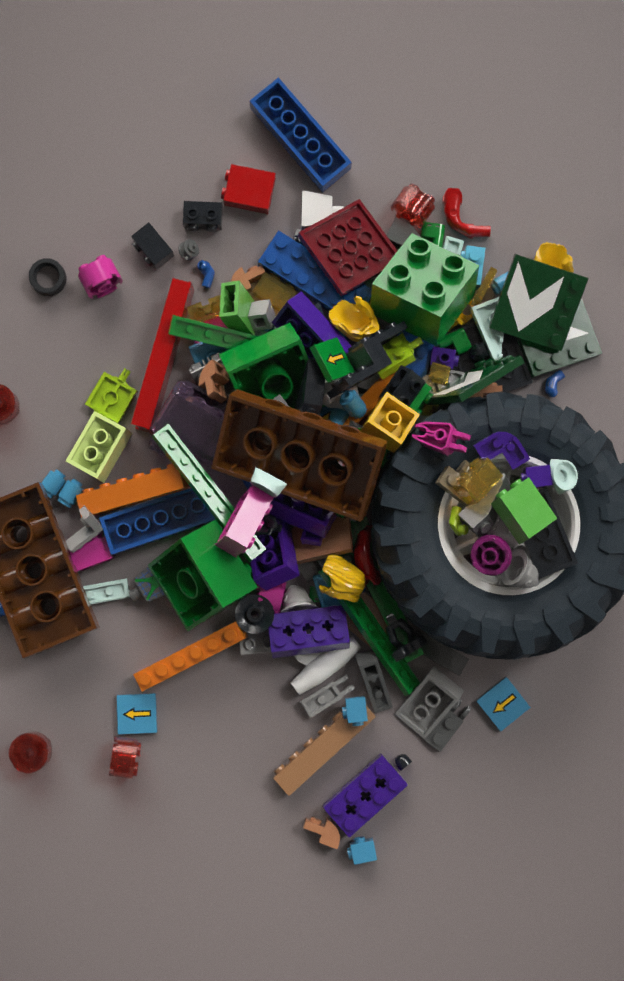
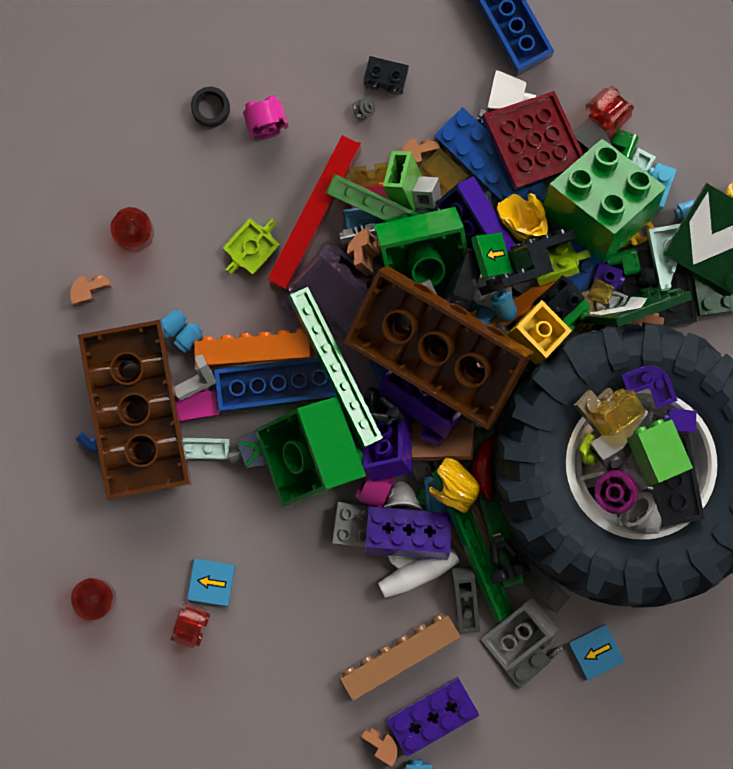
camera: 15 degrees right, 0 degrees up
(99, 447) = (228, 295): yellowish green slope -> none
(152, 245) = (327, 96): black brick -> none
(189, 656) = (280, 533): orange brick -> none
(208, 273) = (379, 136): blue arm -> none
(243, 614) = (353, 492): black dish -> none
(245, 521) = (367, 404): brick -> none
(248, 189) = (440, 56): red brick -> none
(267, 482) = (398, 369): light aqua piece -> none
(325, 697) = (411, 605): light grey hinge -> none
(355, 710) = (440, 626): dark azure brick -> none
(402, 761) = (478, 689): black hinge -> none
(441, 437) = (589, 359): dark pink hinge -> none
(452, 200) = (651, 113): red piece -> none
(484, 286) = (667, 210): clear yellow tile -> none
(551, 383) = (717, 325): blue arm -> none
(563, 475) = (708, 424): light aqua piece -> none

